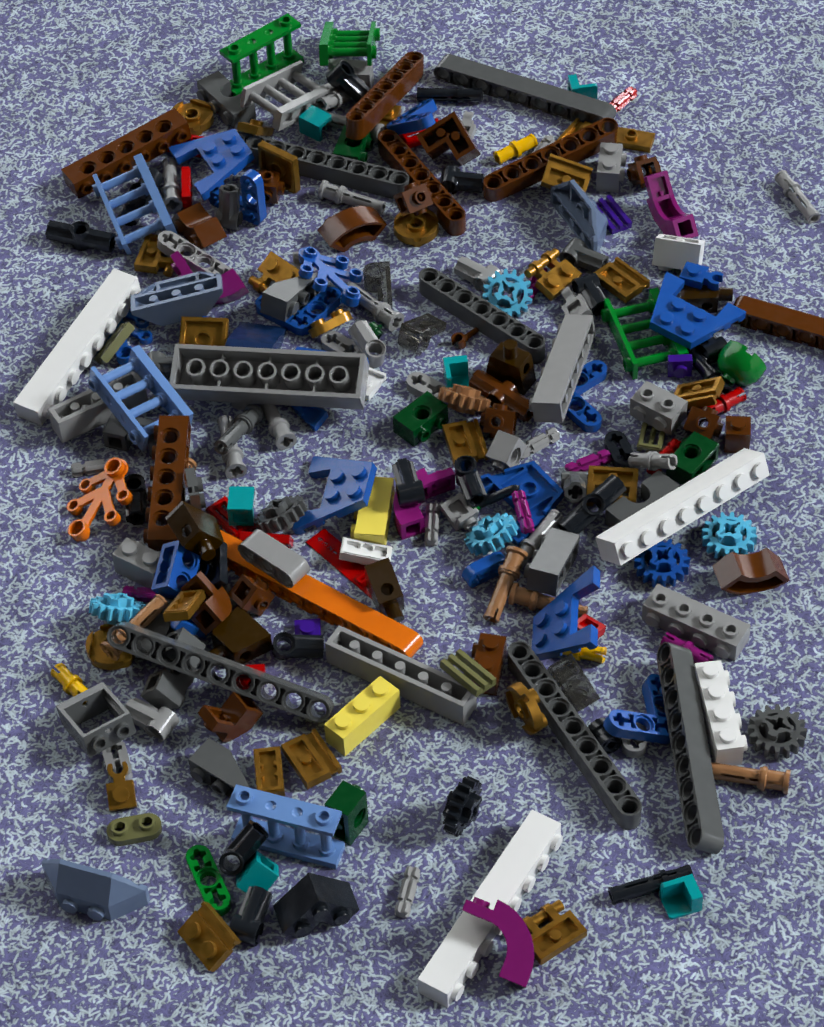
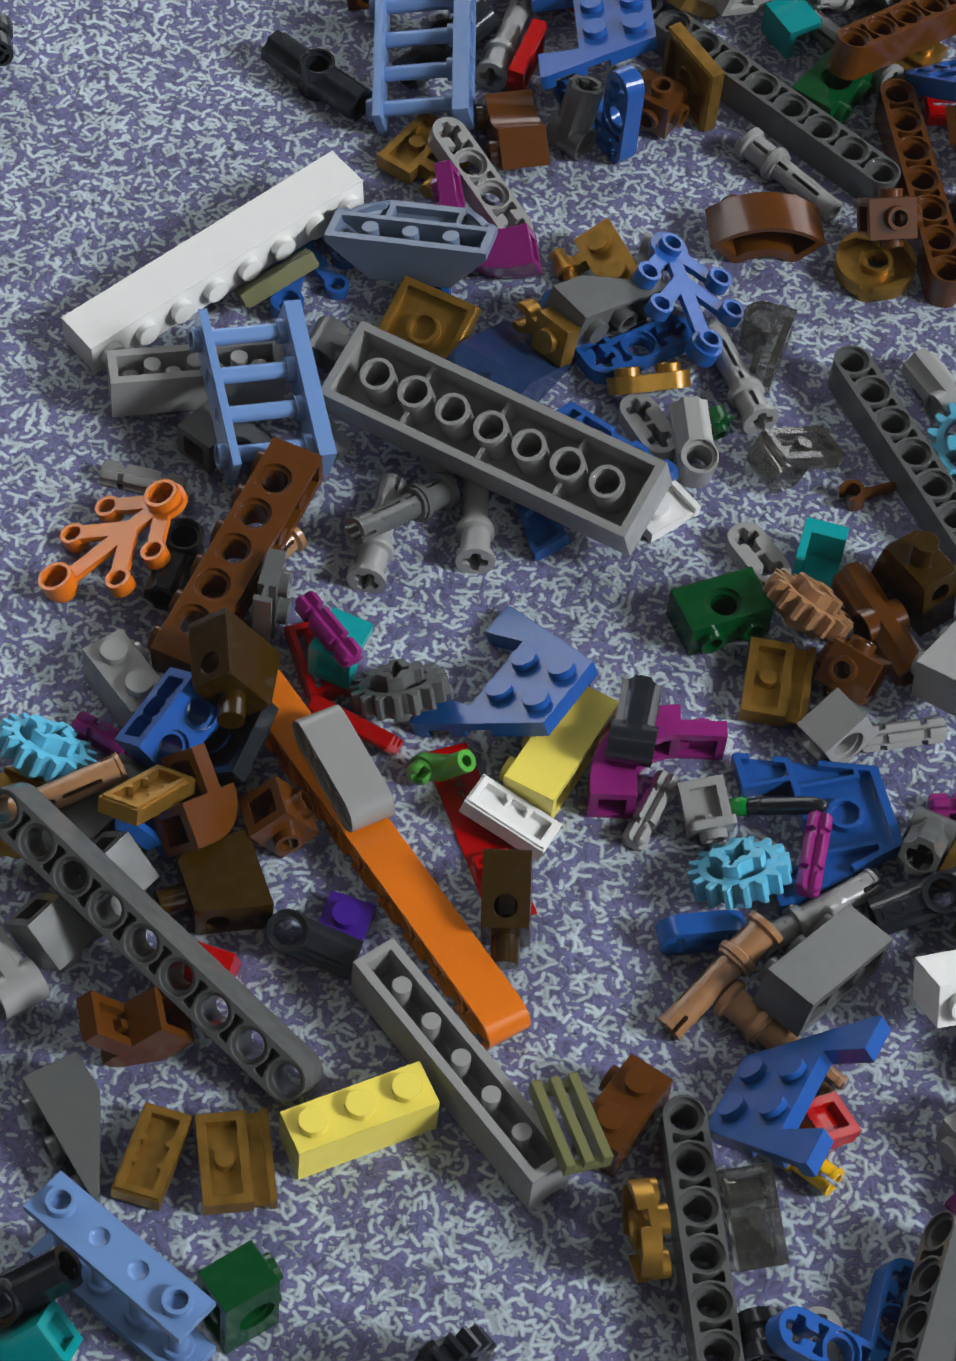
camera: 15 degrees right, 5 degrees up
(233, 496) = (328, 629): none -> magenta axle
(270, 317) = (551, 331): none -> pearl gold plate
(317, 544) = (439, 767): none -> bright green arm
(469, 481) = (746, 761): black piece -> none

